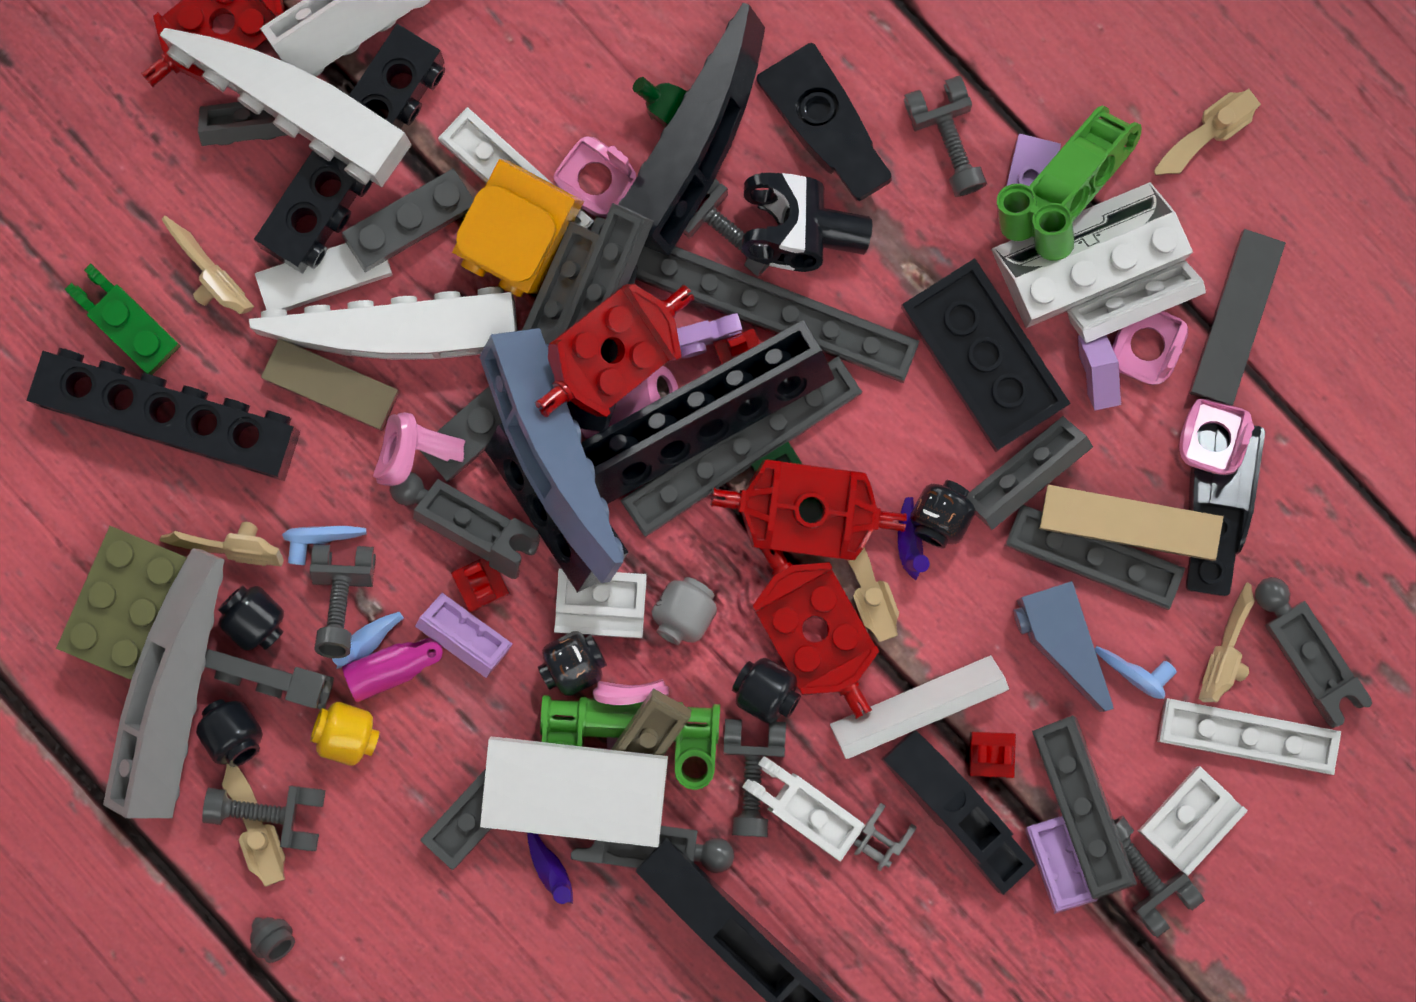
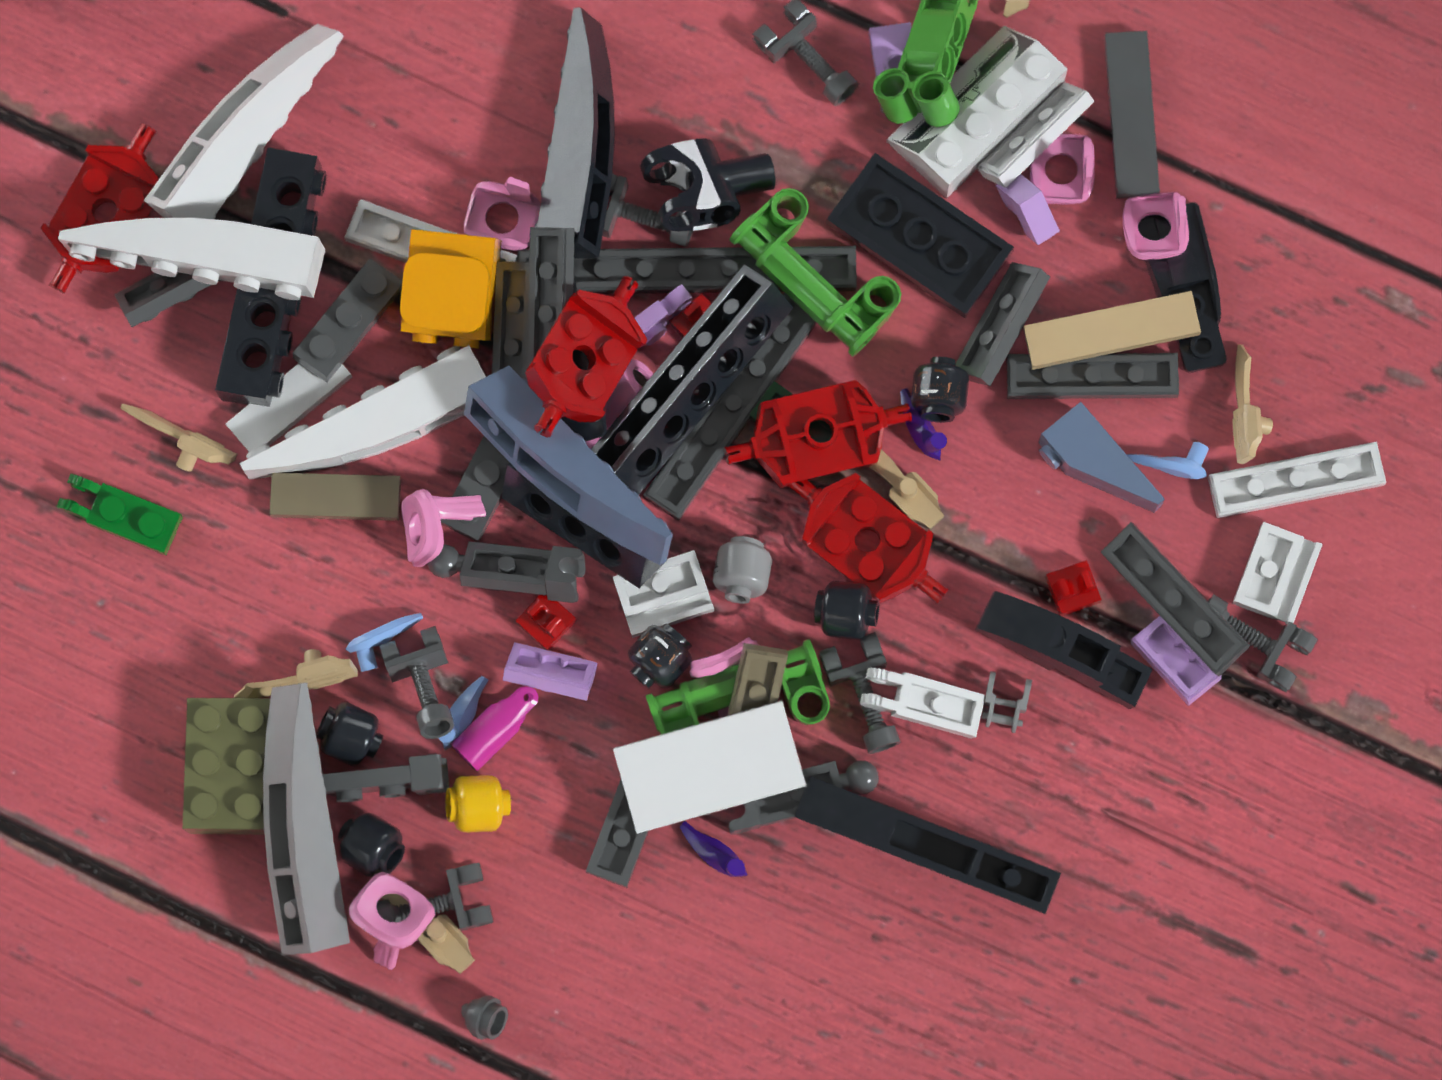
camera: 20 degrees left, 5 degrees down
(54, 391) = (304, 585): black brick -> none
(210, 831) = (390, 935): none -> bright pink piece
(661, 100) = (535, 123): dark green piece -> none
(825, 120) = (689, 84): black piece -> none
(834, 301) = (766, 239): none -> bright green piece
(919, 707) = (990, 570): white tile -> none
(1310, 652) = (1320, 383): dark grey plate -> none

